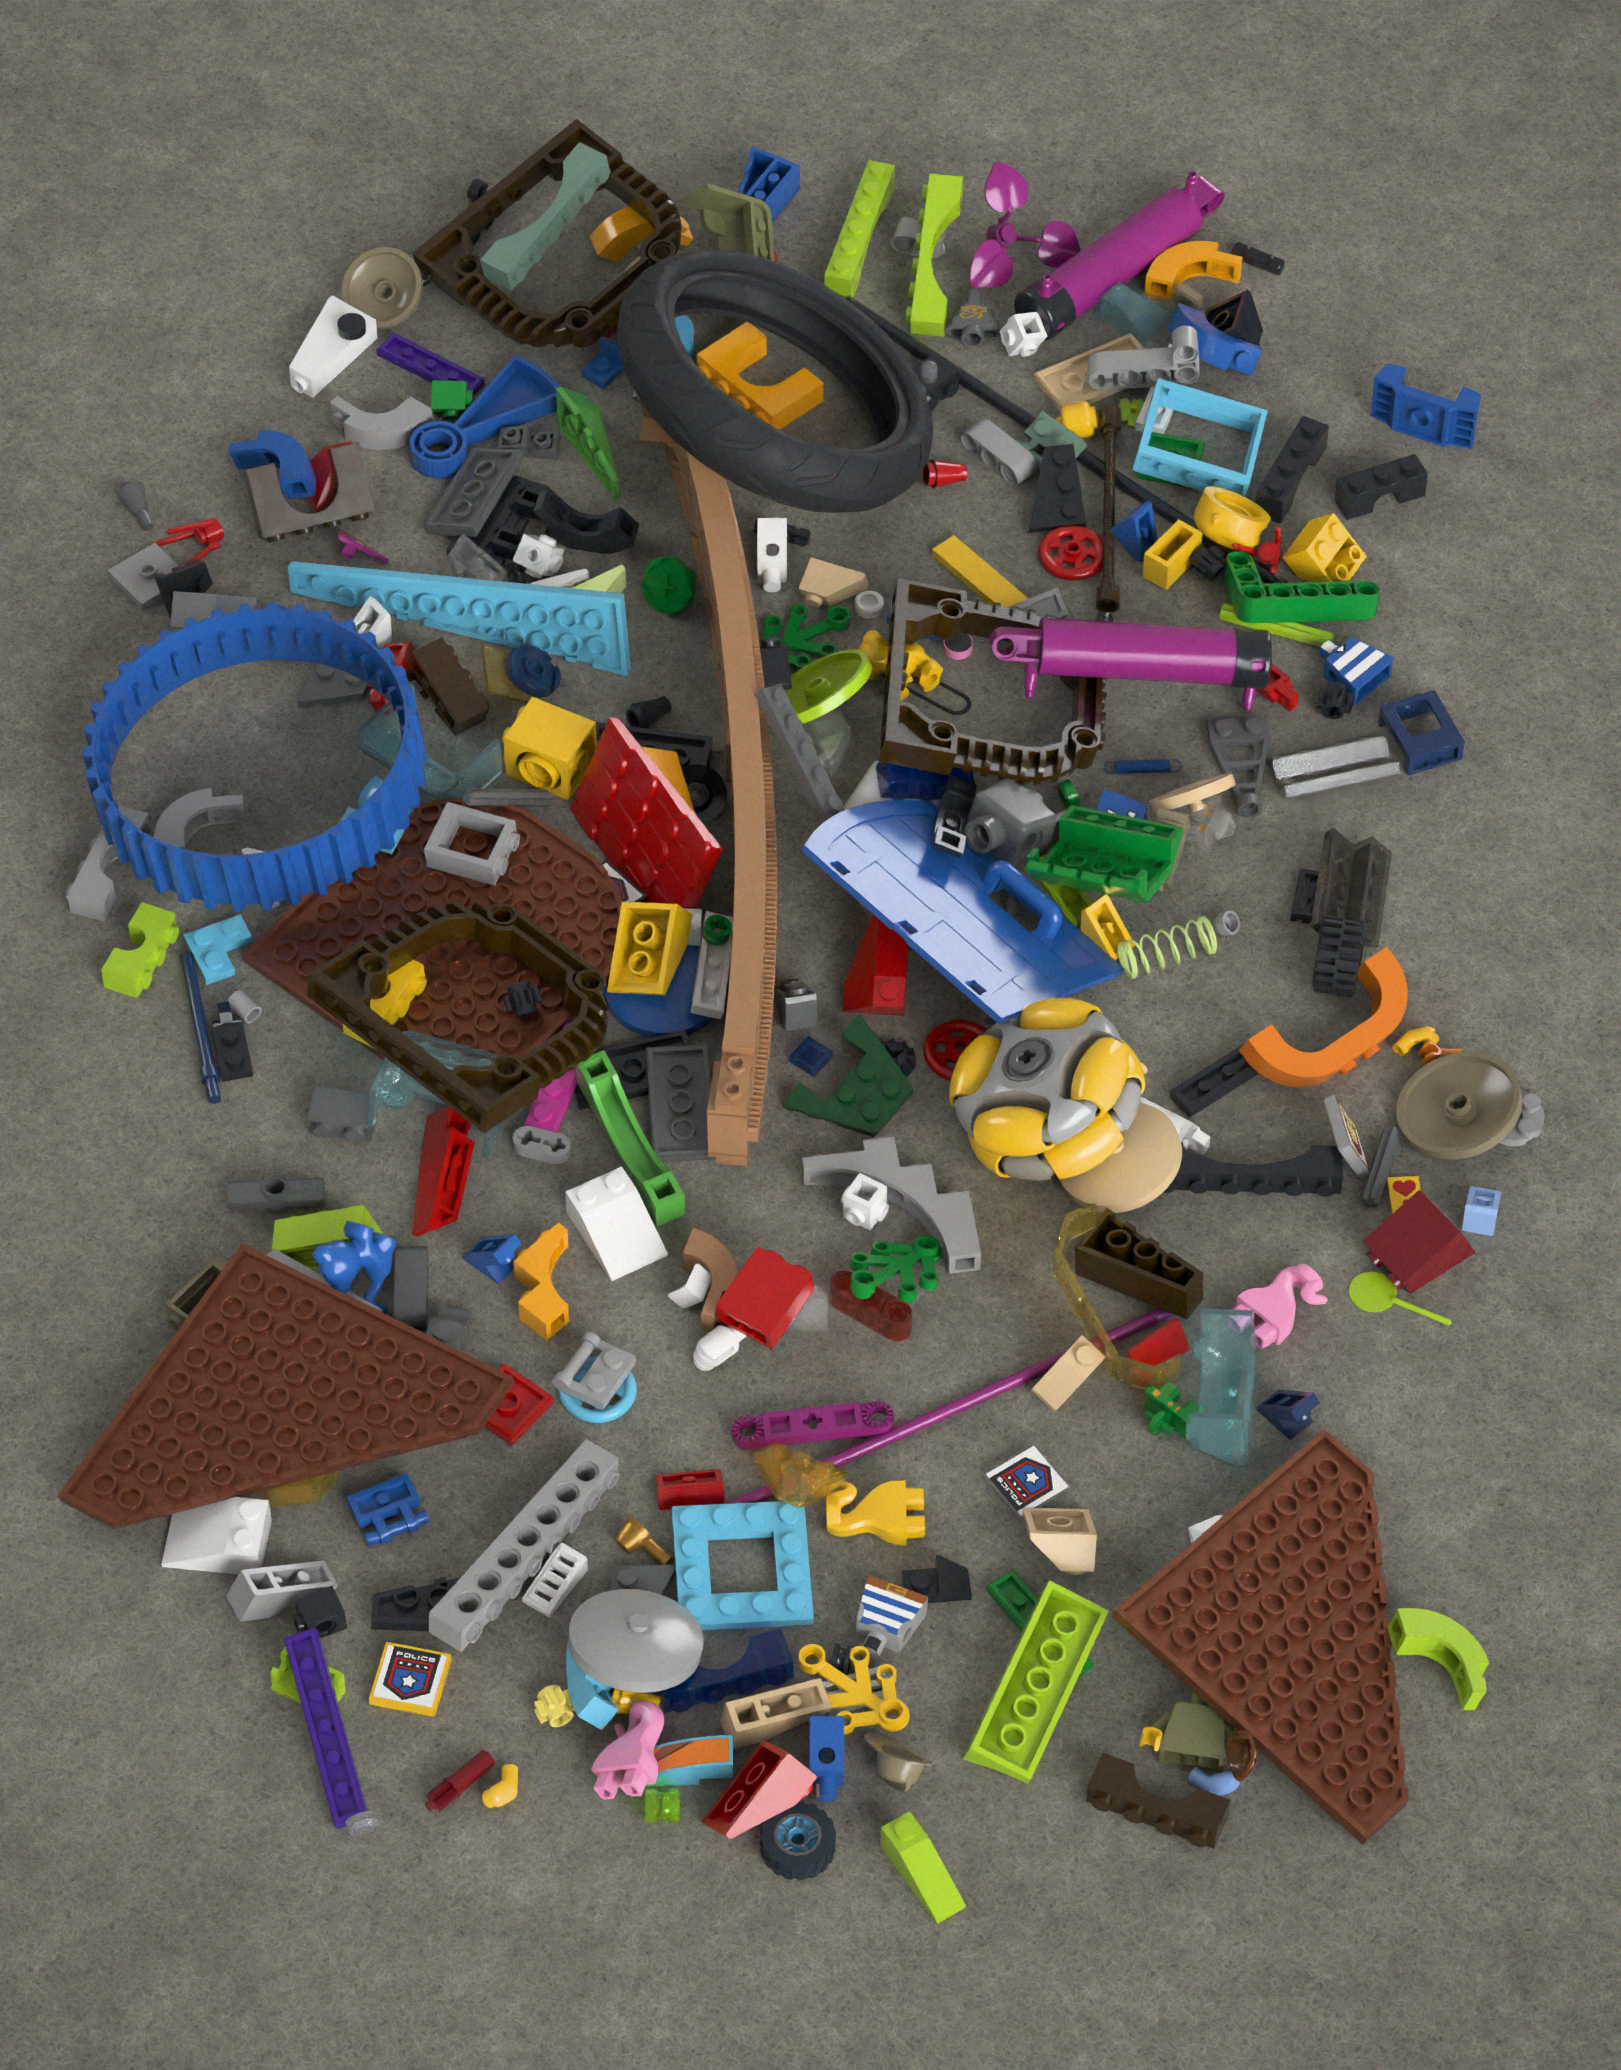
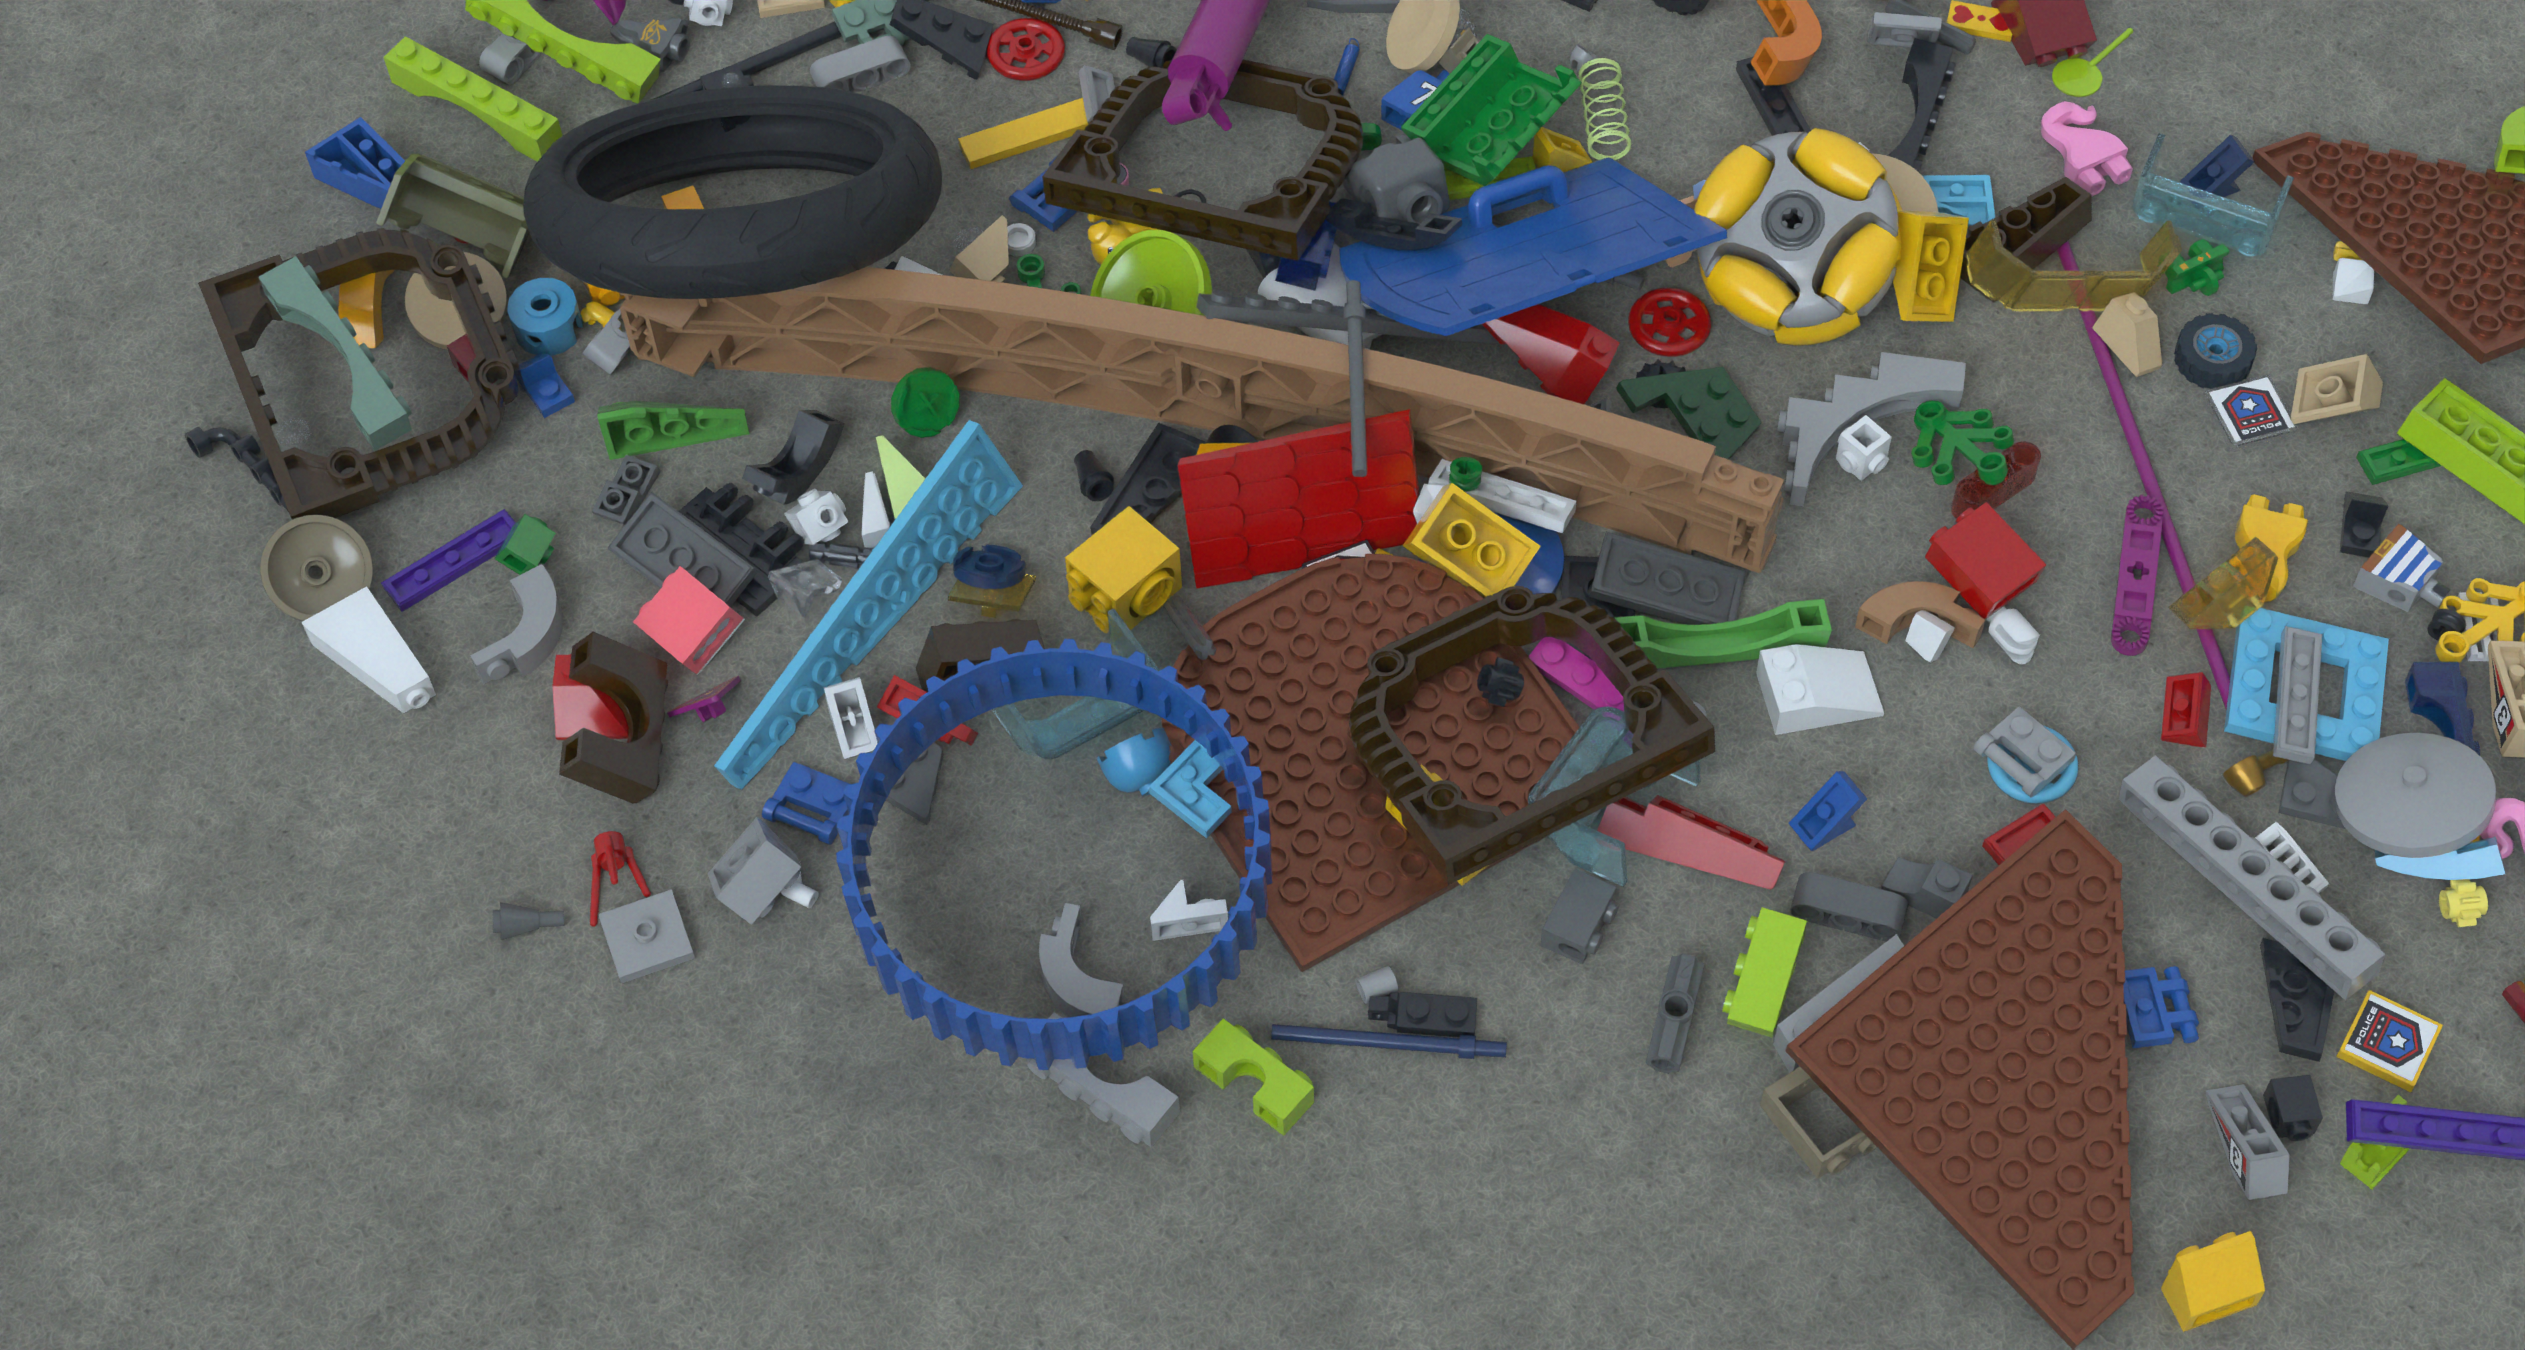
camera: 70 degrees left, 5 degrees up
(141, 1577) = (2214, 1280): none -> yellow slope
(189, 578) = (690, 882): black wing -> none
(211, 944) = (1268, 1004): medium azure plate -> none
(219, 1536) = (2166, 1185): white slope -> none
(296, 472) = (536, 732): blue arch -> none
(341, 1261) = (1838, 942): blue animal -> none
(351, 326) = (370, 610): black tile -> none
(414, 509) = (688, 620): none -> coral piece
(486, 871) = (1237, 703): light grey window -> none
(511, 399) = (553, 486): blue piece -> none
(541, 1305) = (1913, 781): light orange arch -> none
(714, 1547) = (2297, 695): none -> light grey tile
(786, 781) = (1354, 318): none -> dark grey bar
(1049, 1198) = (1929, 265): none -> yellow slope
(1088, 1428) = (2232, 348): none -> black wheel
(1161, 1344) = (2104, 251): red slope -> none
(1181, 1224) = (1964, 196): none -> medium azure wing

